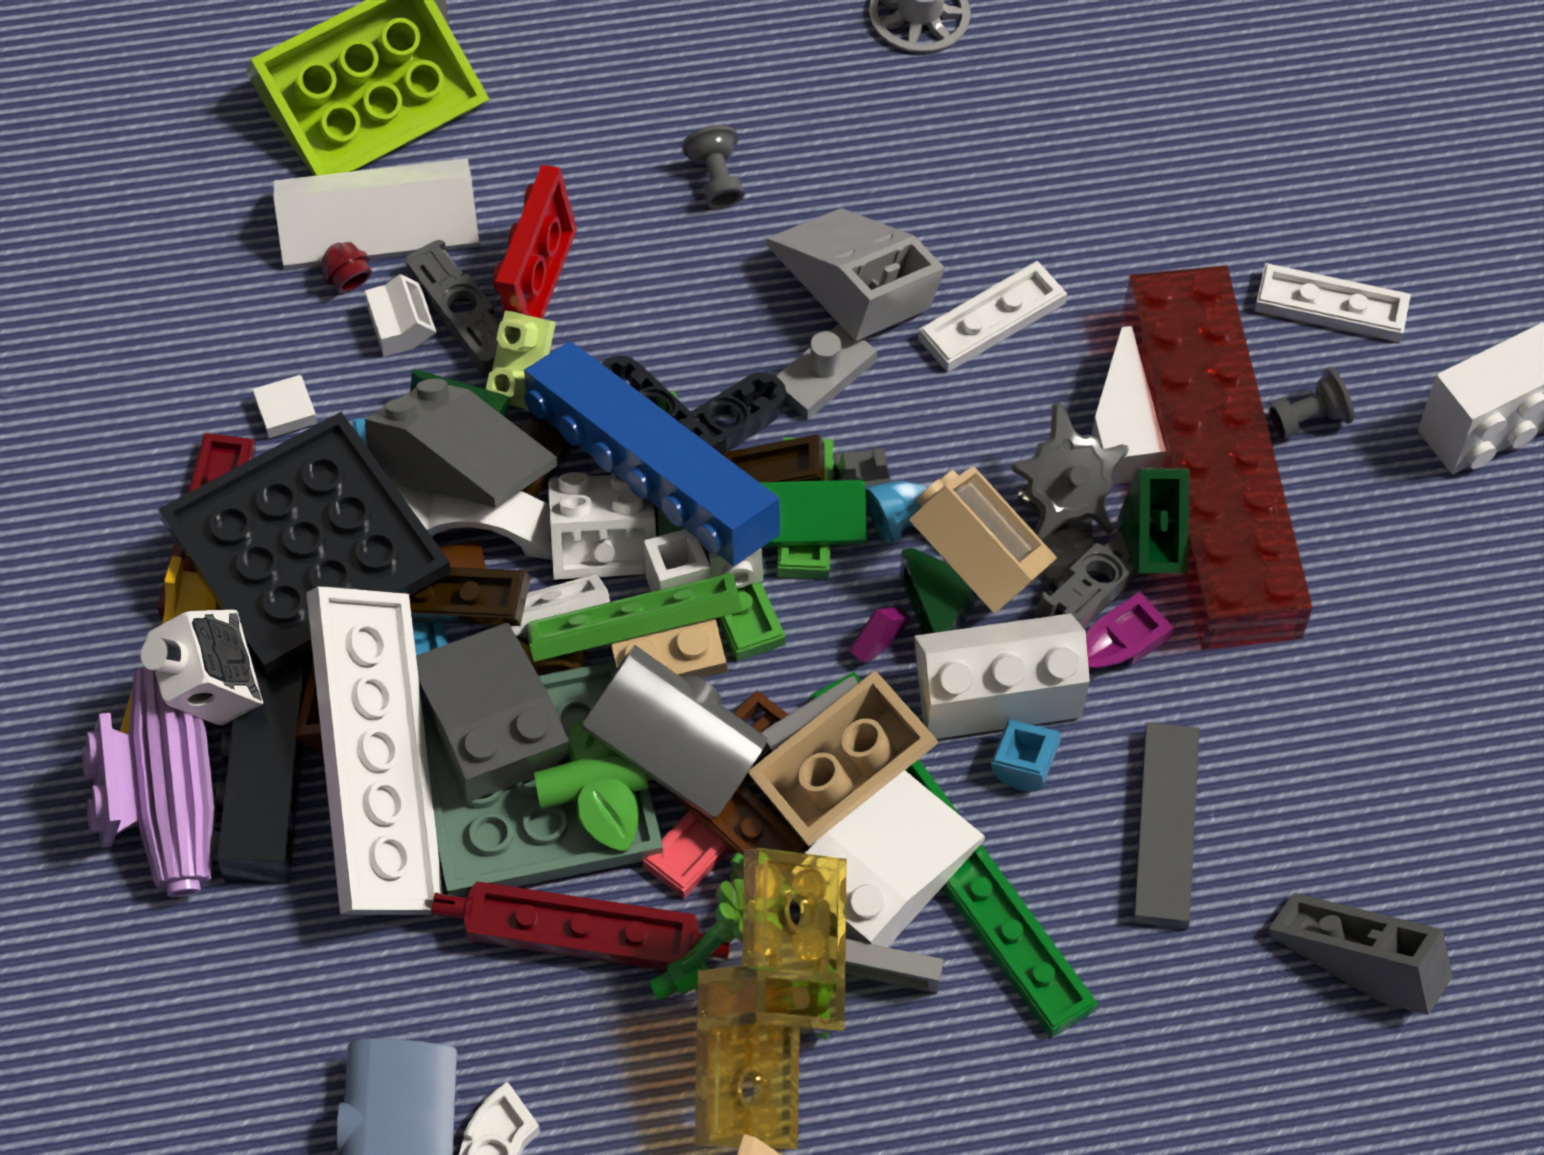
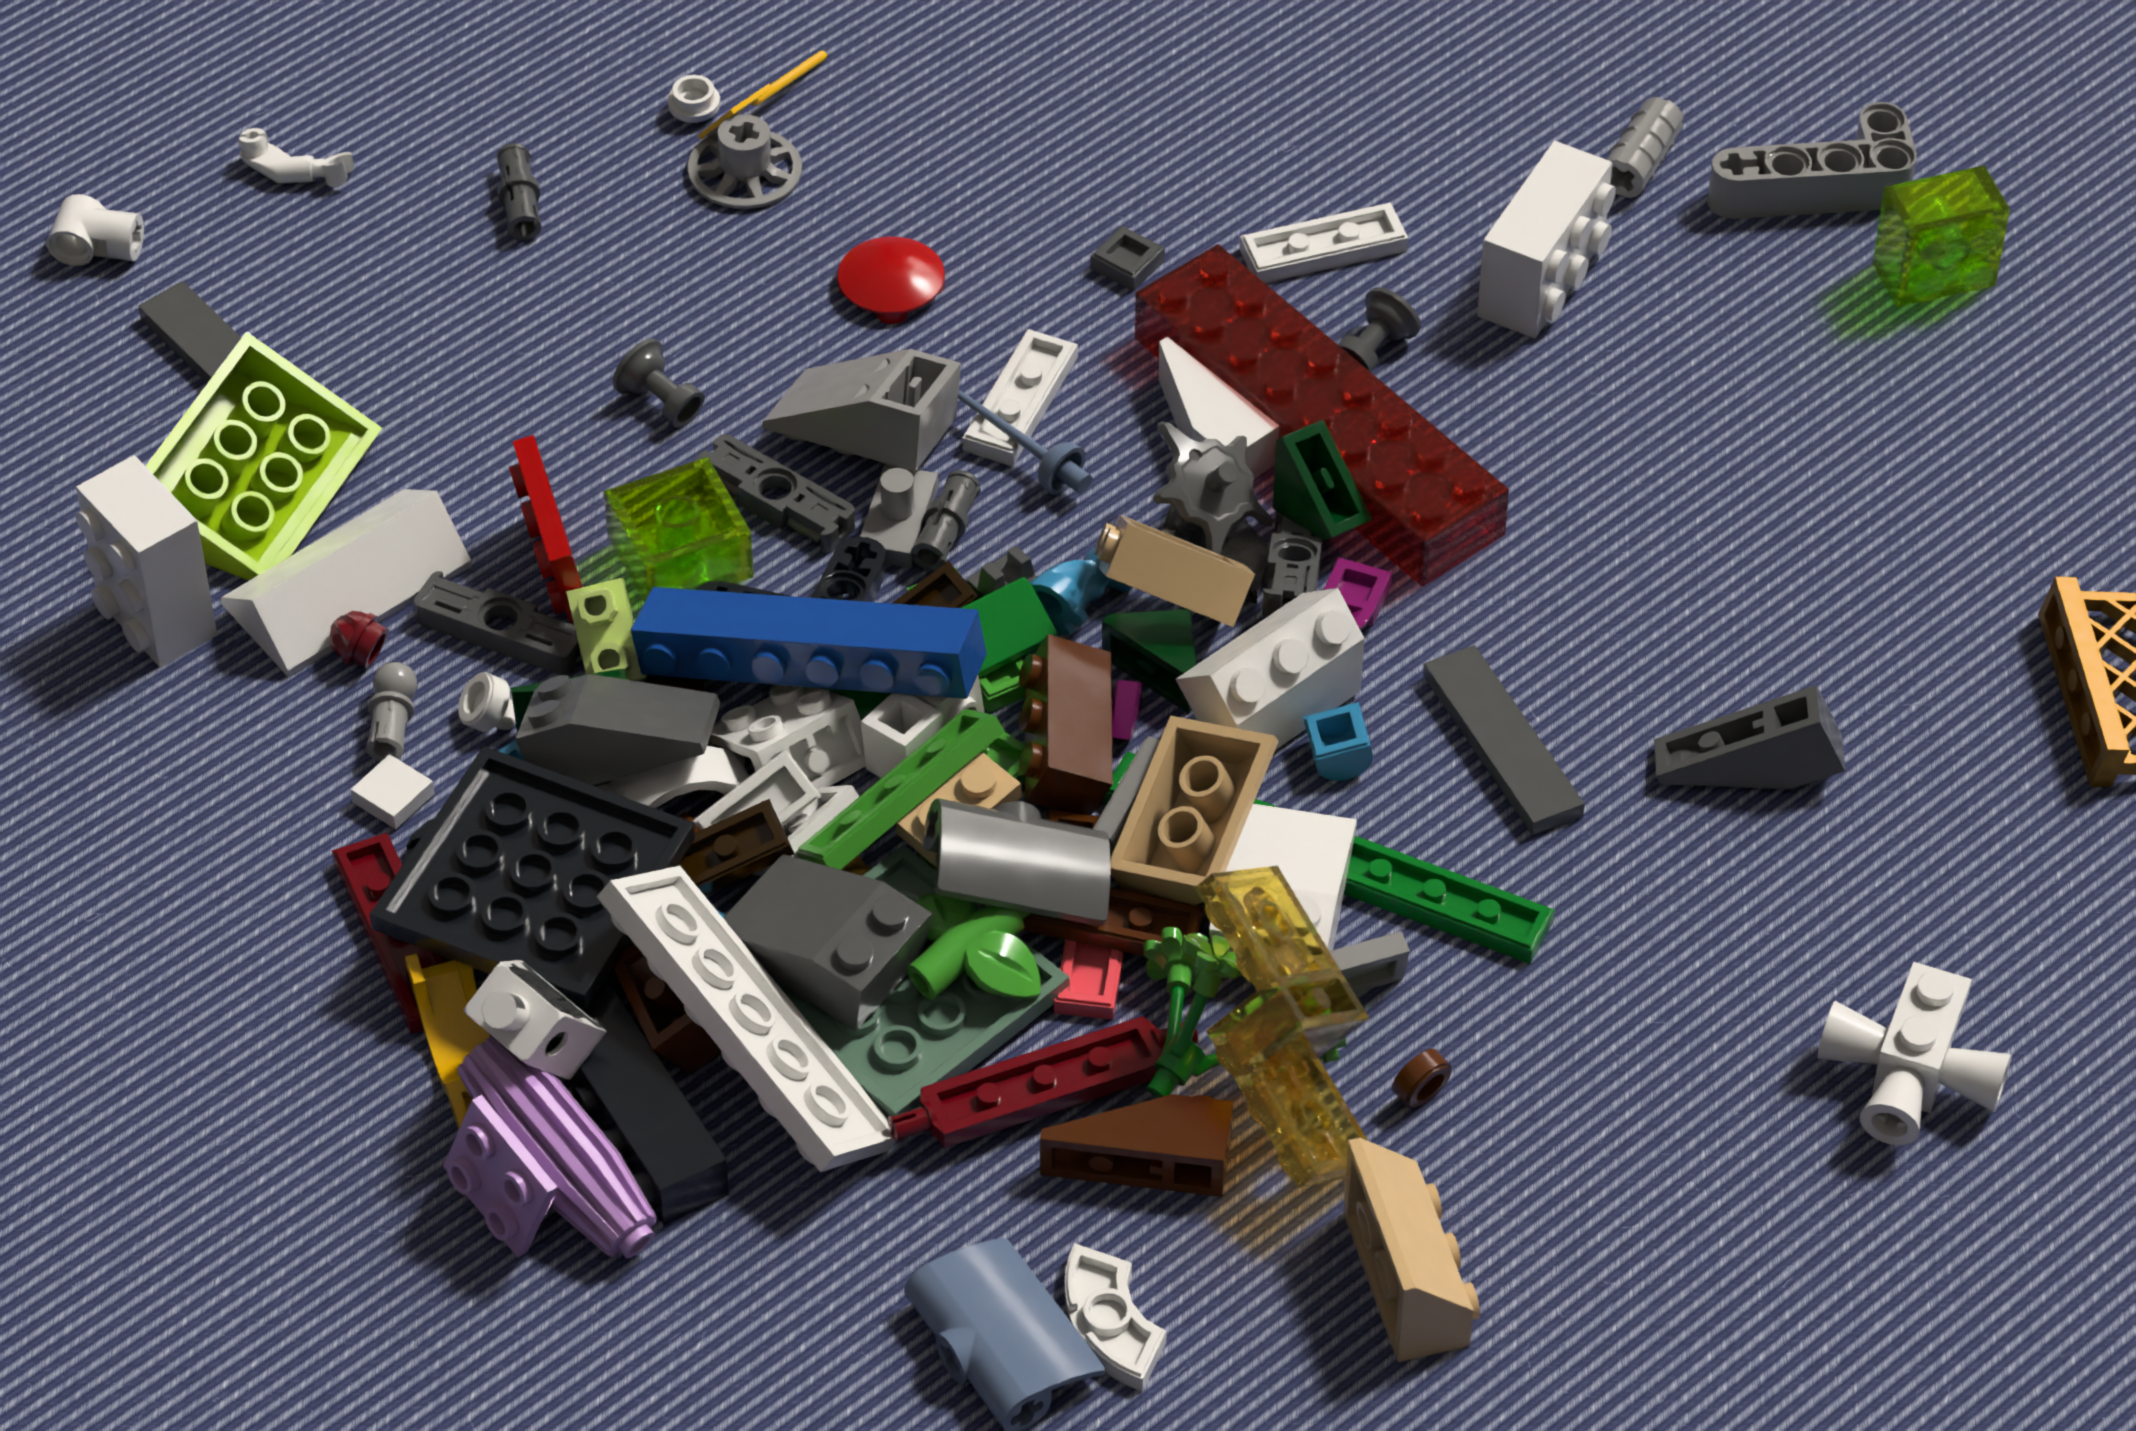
camera: 30 degrees left, 10 degrees down
(215, 126) = (145, 561): none -> white brick
(344, 320) = (390, 709): none -> light grey pin
(396, 369) = (486, 703): none -> white tile
(399, 315) = (444, 658): white piece -> none
(547, 562) = (777, 780): none -> white tile
(625, 1030) = (1152, 1144): none -> reddish brown slope
(634, 302) = (678, 529): none -> clear neon green brick
(756, 328) = (807, 507): none -> dark grey piece
(813, 625) = (1066, 725): none -> reddish brown brick
(854, 394) = (946, 520): none -> dark grey pin
(879, 1096) = (1422, 1078): none -> reddish brown tile
(964, 161) = (891, 277): none -> red dish
(975, 393) = (1058, 466): none -> sand blue sword
(1163, 237) = (1127, 258): none -> dark grey tile

